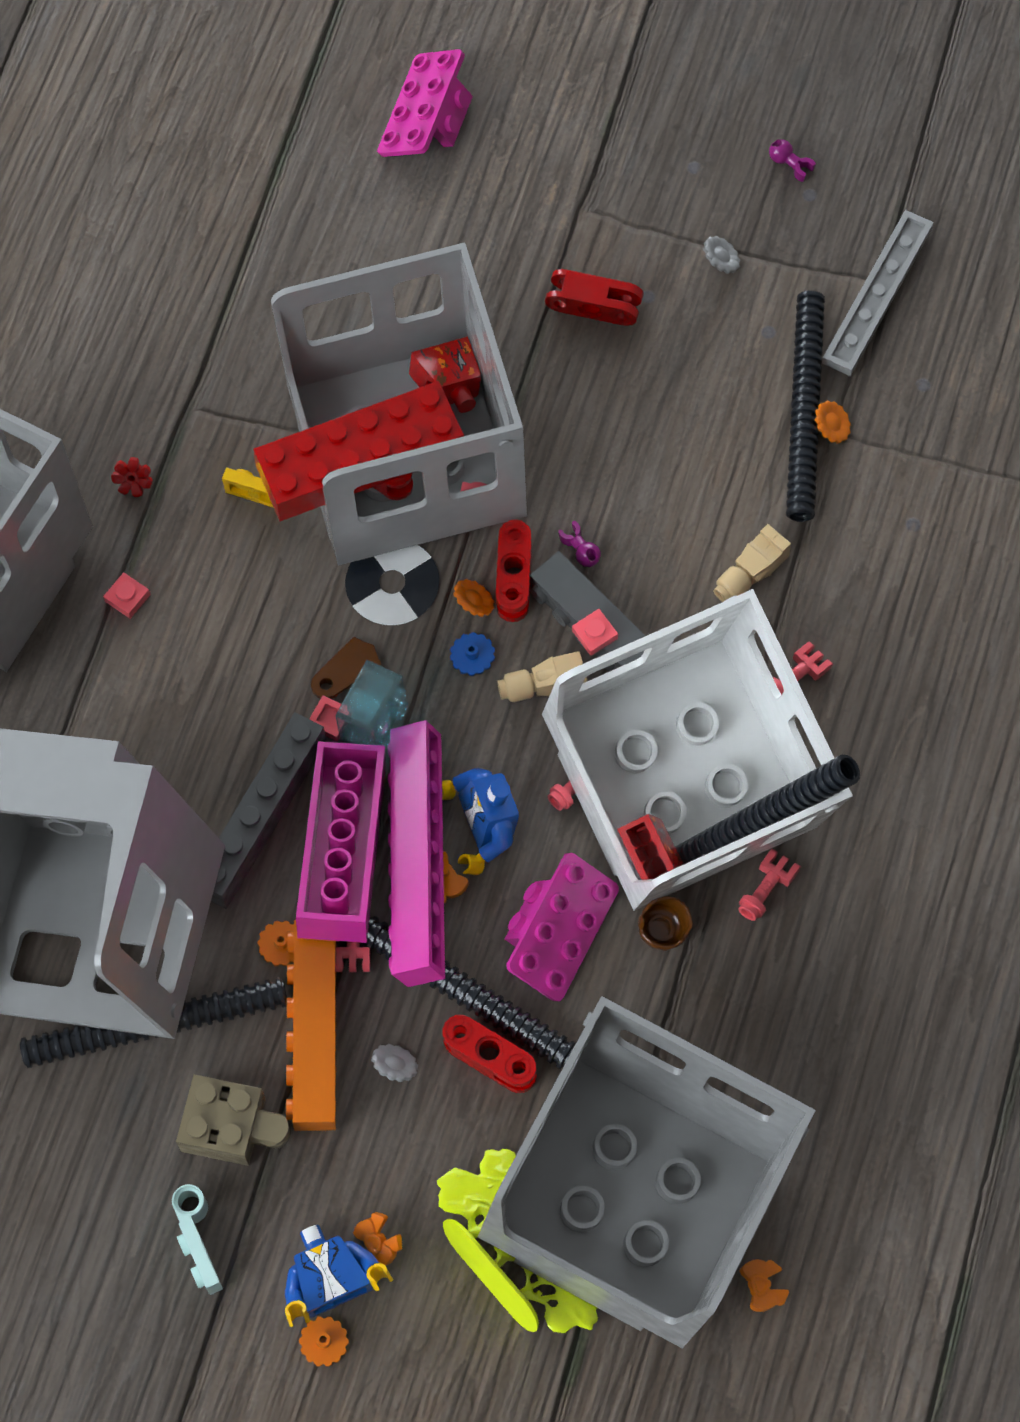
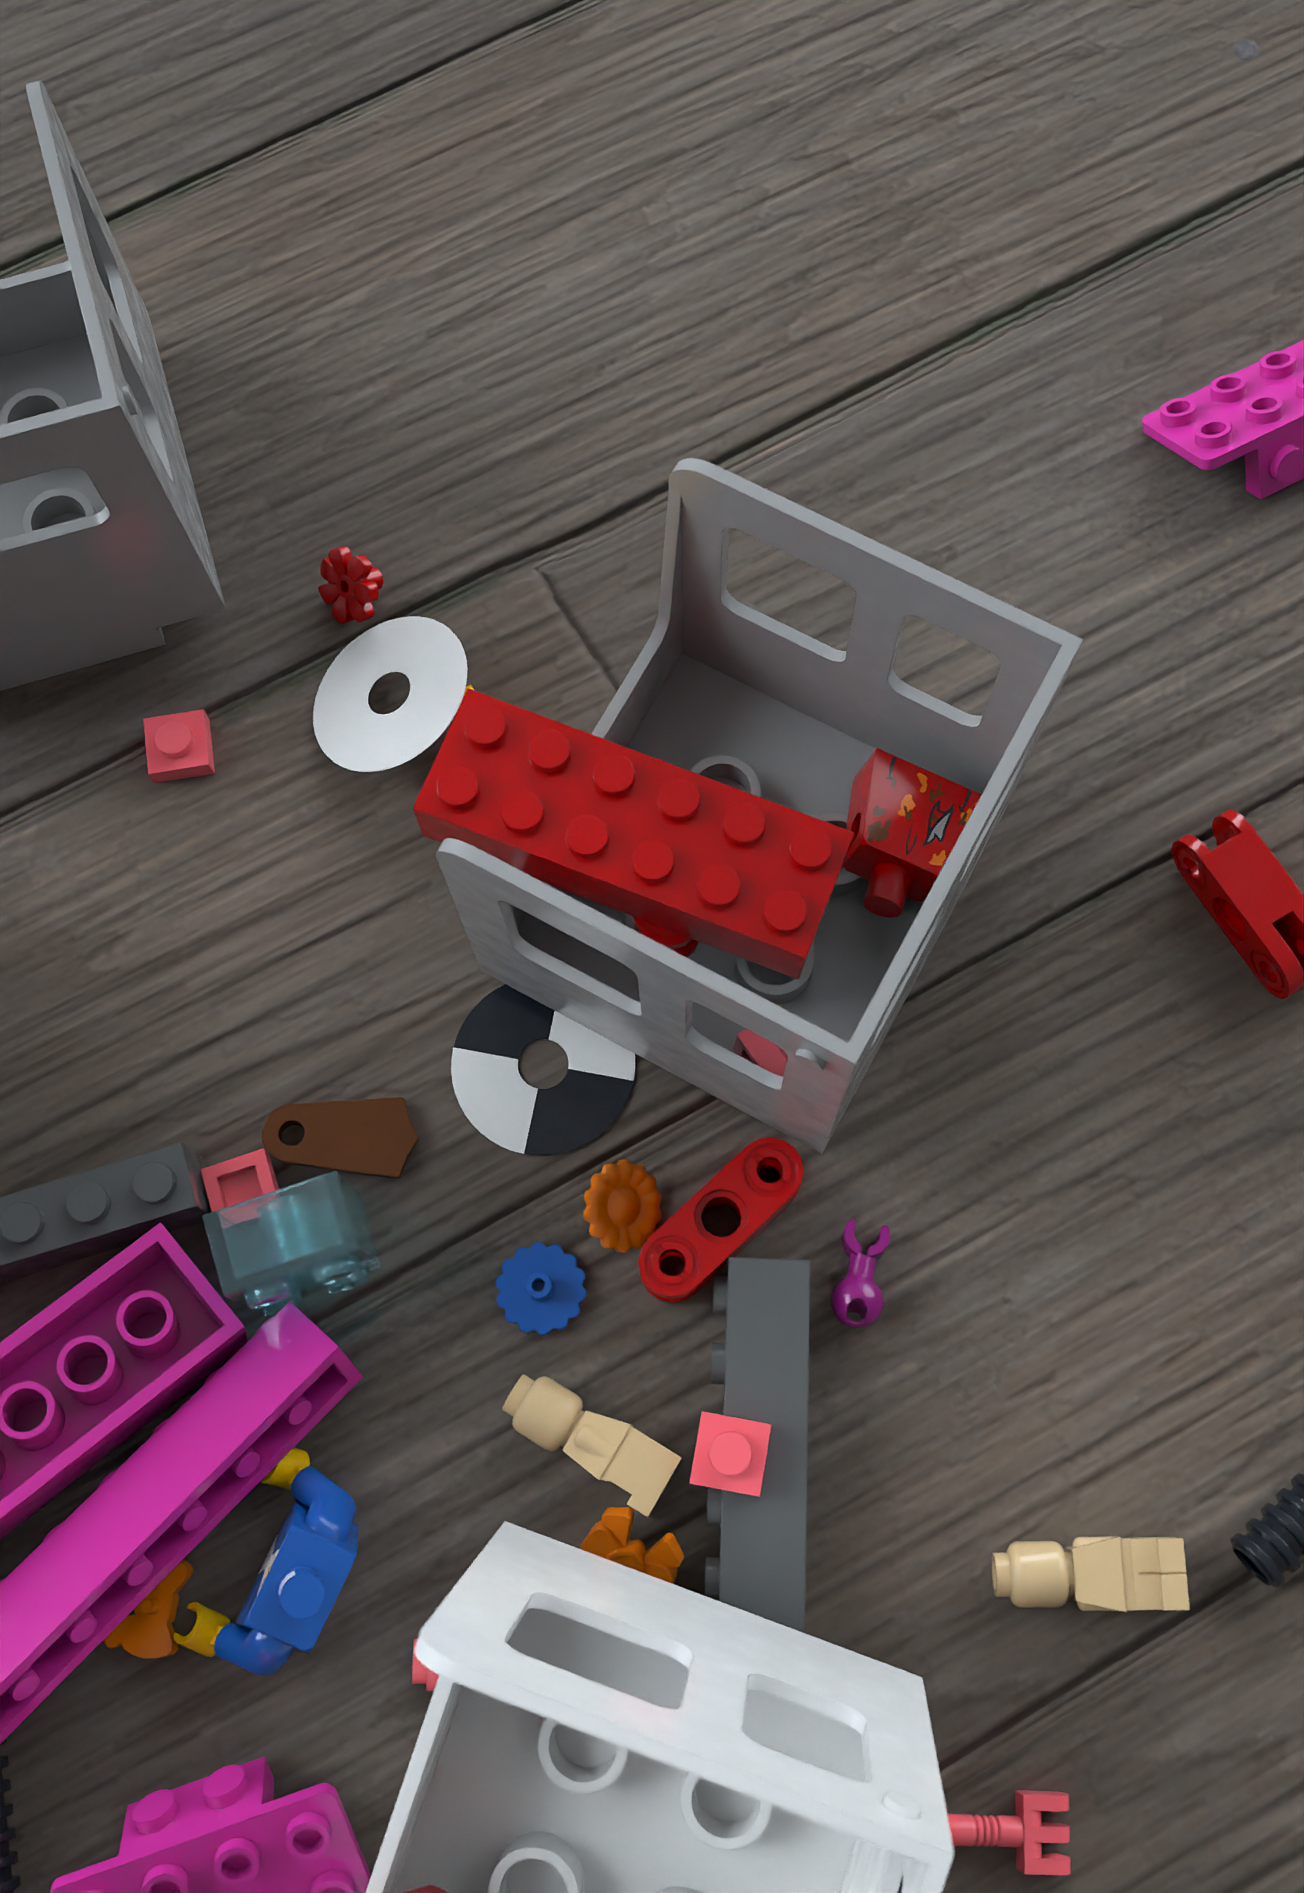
camera: 45 degrees right, 5 degrees up
(220, 499) = (377, 742): none -> white sticker

